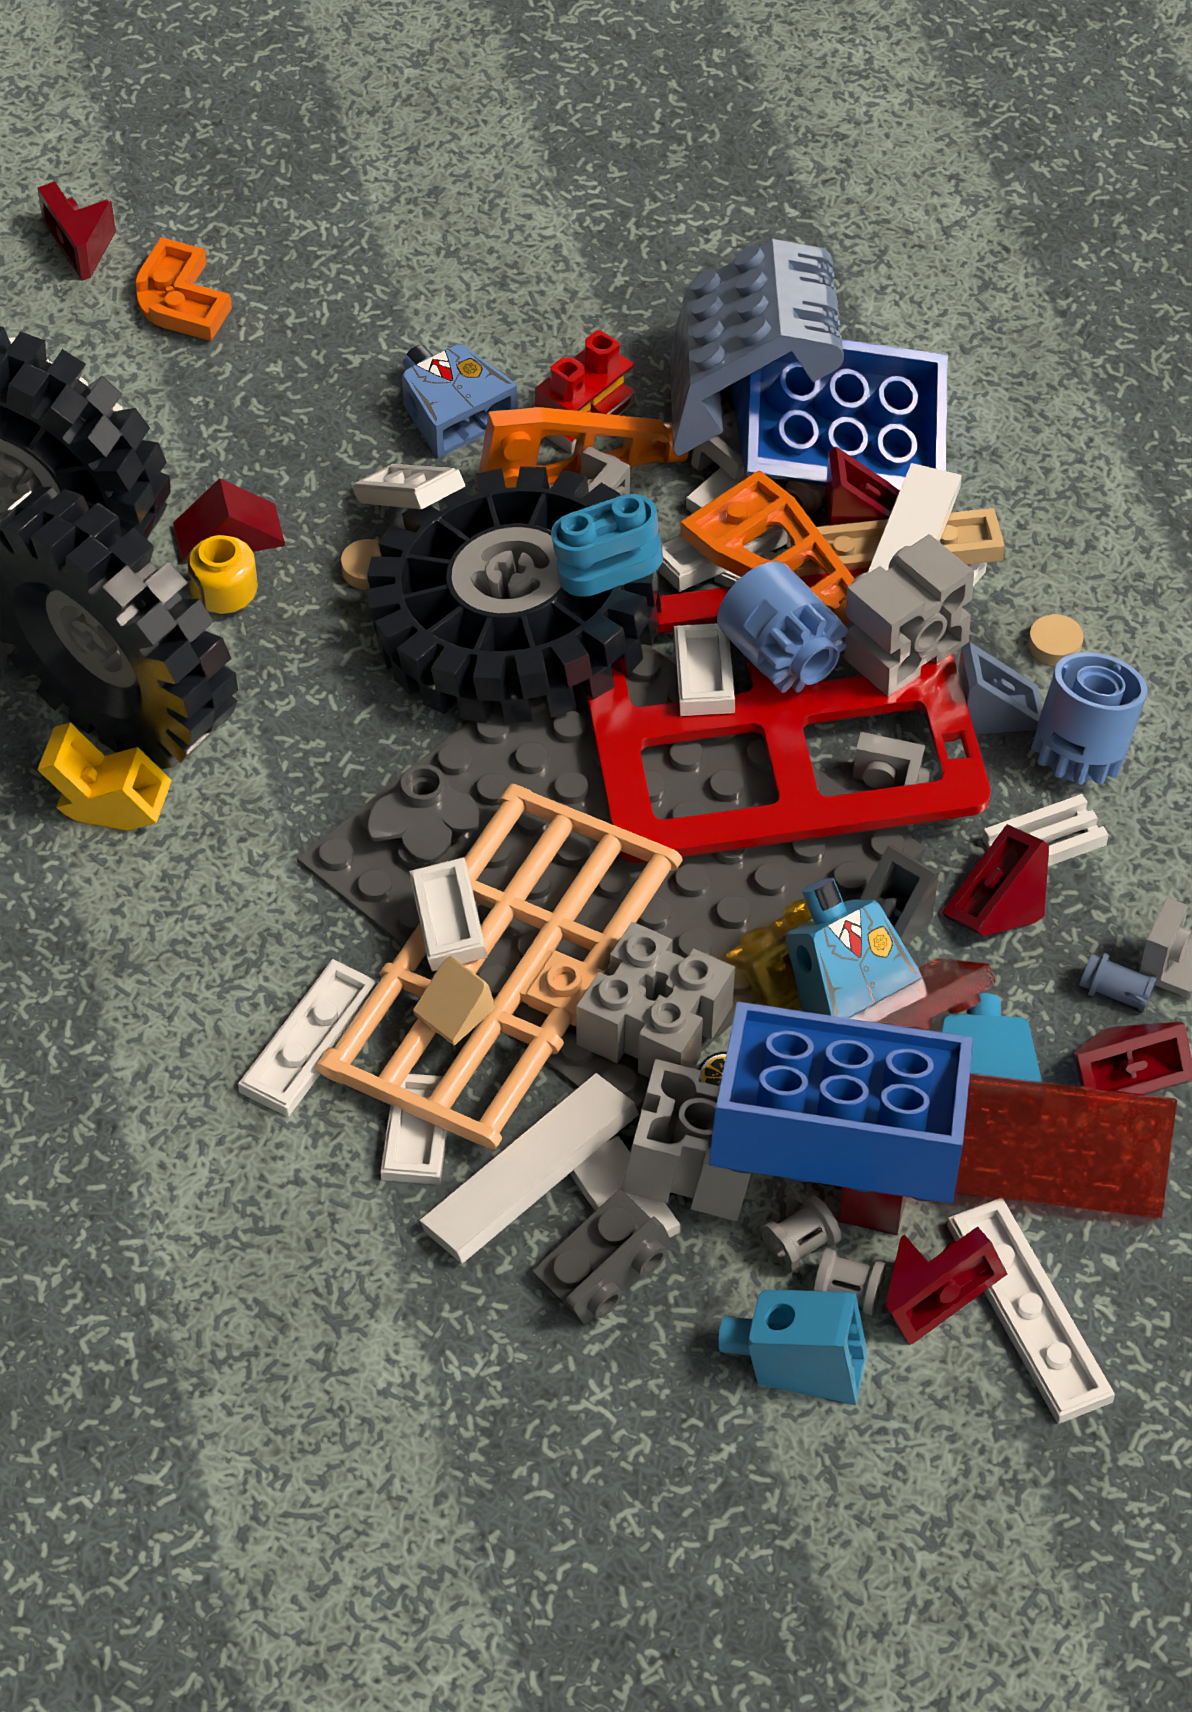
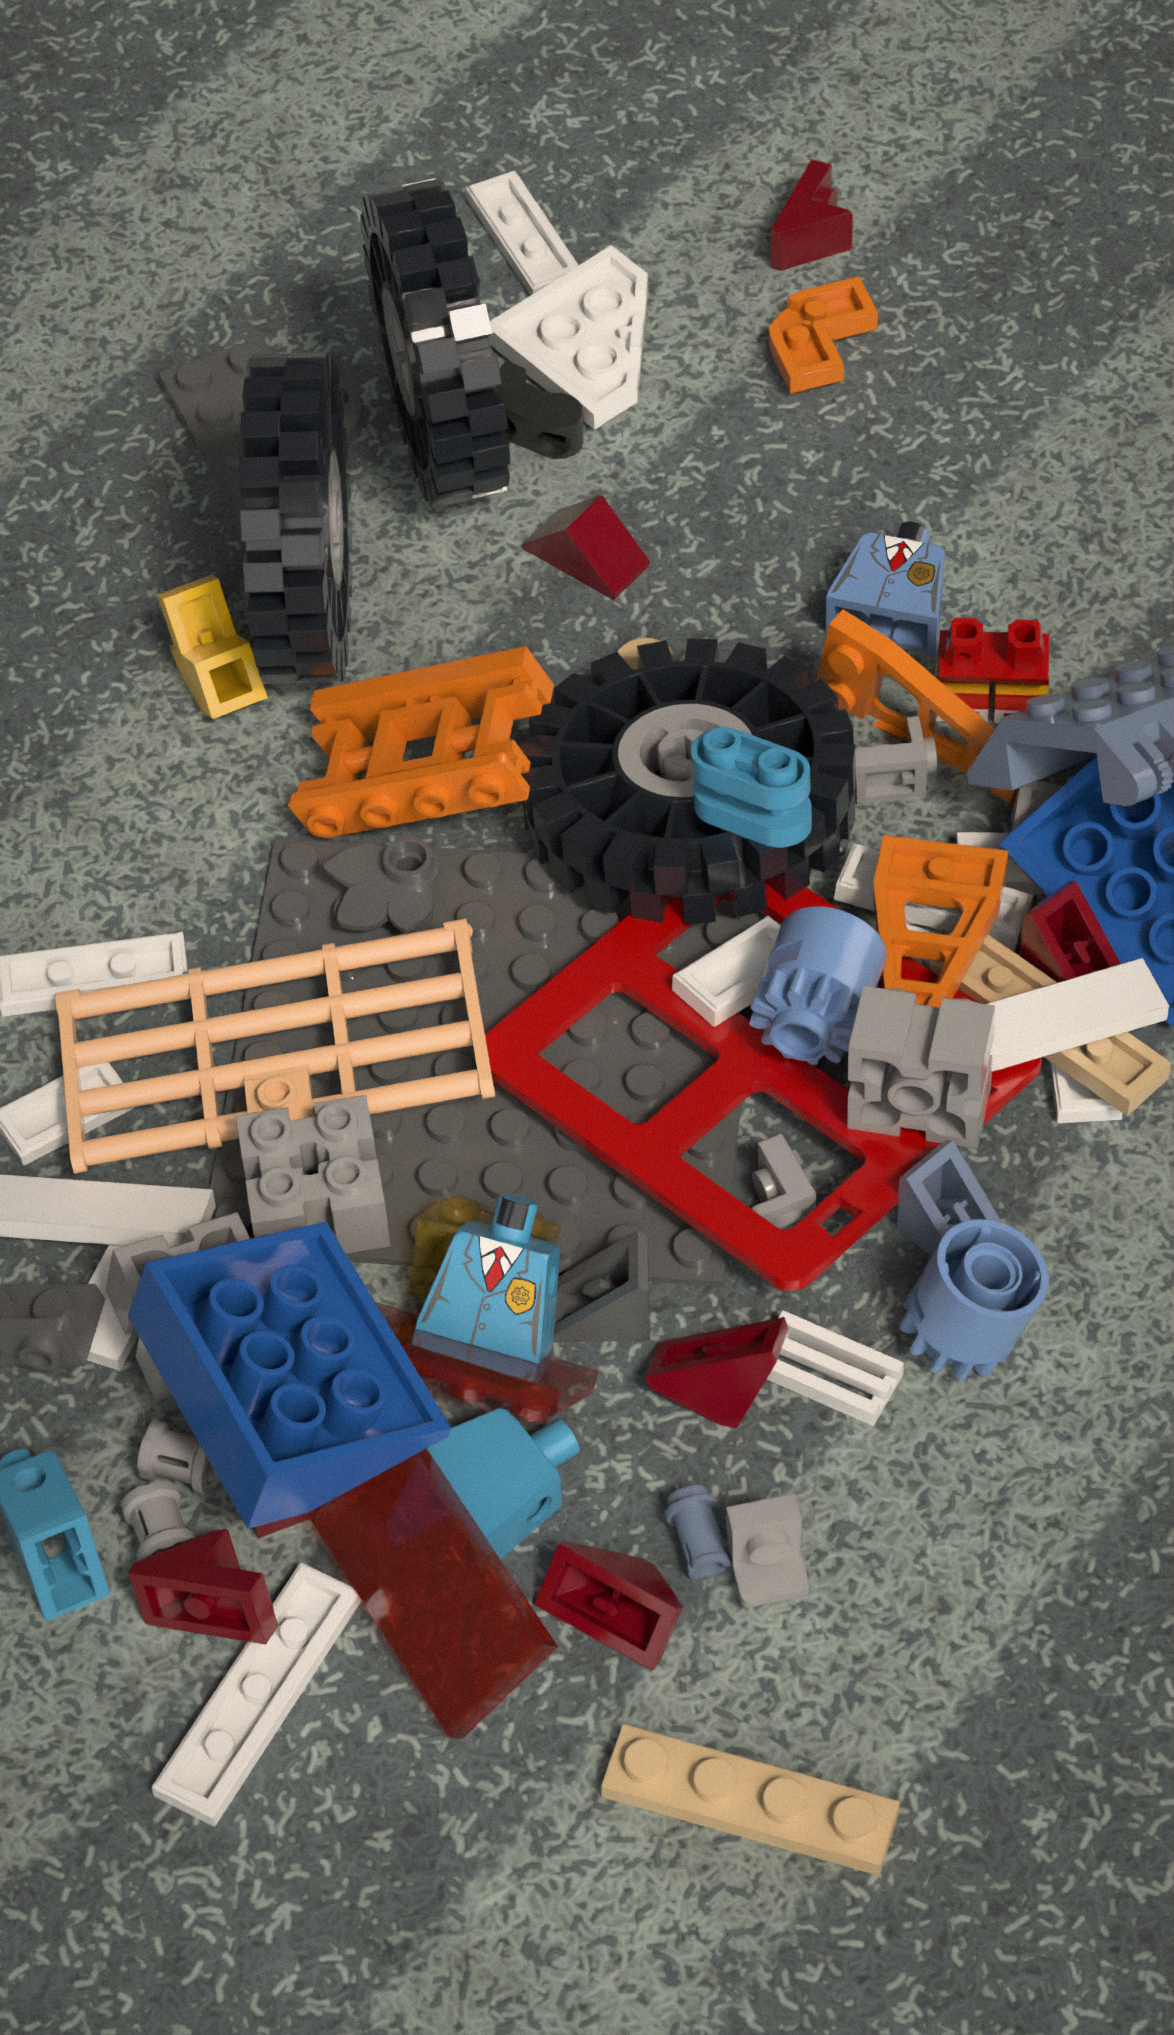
camera: 55 degrees right, 0 degrees up
(222, 574) = (513, 574): yellow head -> none
(311, 682) = (412, 707): none -> orange fence
(408, 486) = (729, 623): white tile -> none
(448, 913) = (275, 968): white tile -> none
(454, 1001) = (179, 1033): tan slope -> none
(1054, 638) = (1085, 1226): tan tile -> none

